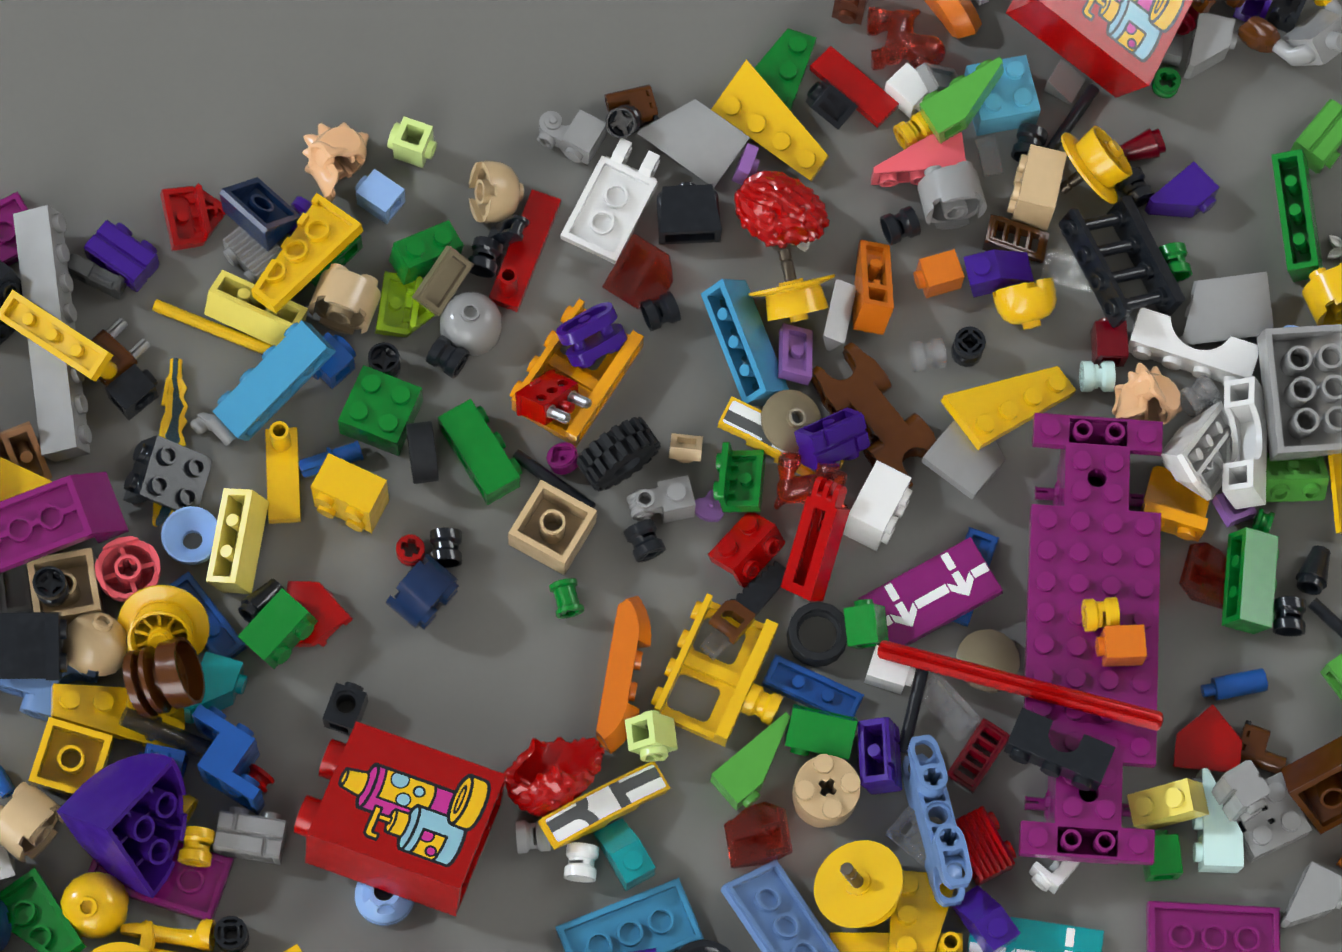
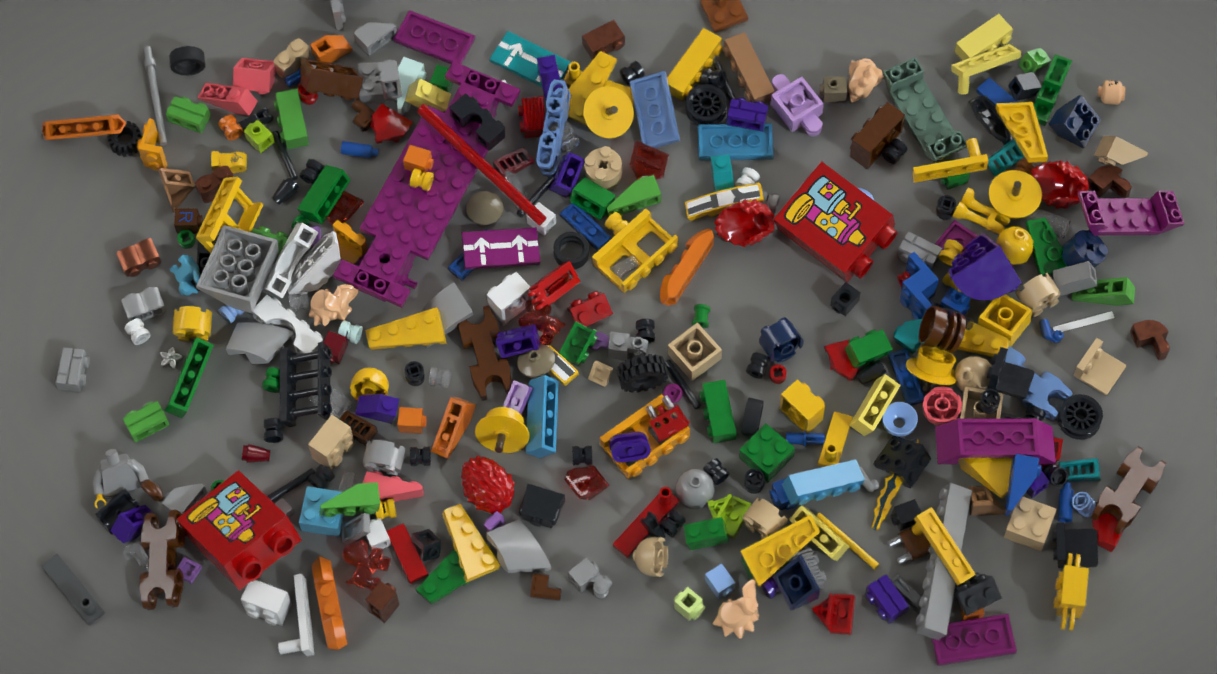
camera: 150 degrees left, 5 degrees down
(442, 280) = (703, 508): dark tan tile -> none
(612, 203) = (582, 531): white tile -> none
(618, 123) = (557, 570): black wheel -> none
(651, 735) = (685, 225): yellowish green brick -> none
(748, 603) = (601, 278): piece -> none
(839, 314) = (480, 412): light grey slope -> none
(865, 624) = (544, 240): green brick -> none
(1097, 161) = (291, 441): yellow piece -> none
(1184, 195) = (246, 416): dark purple slope -> none

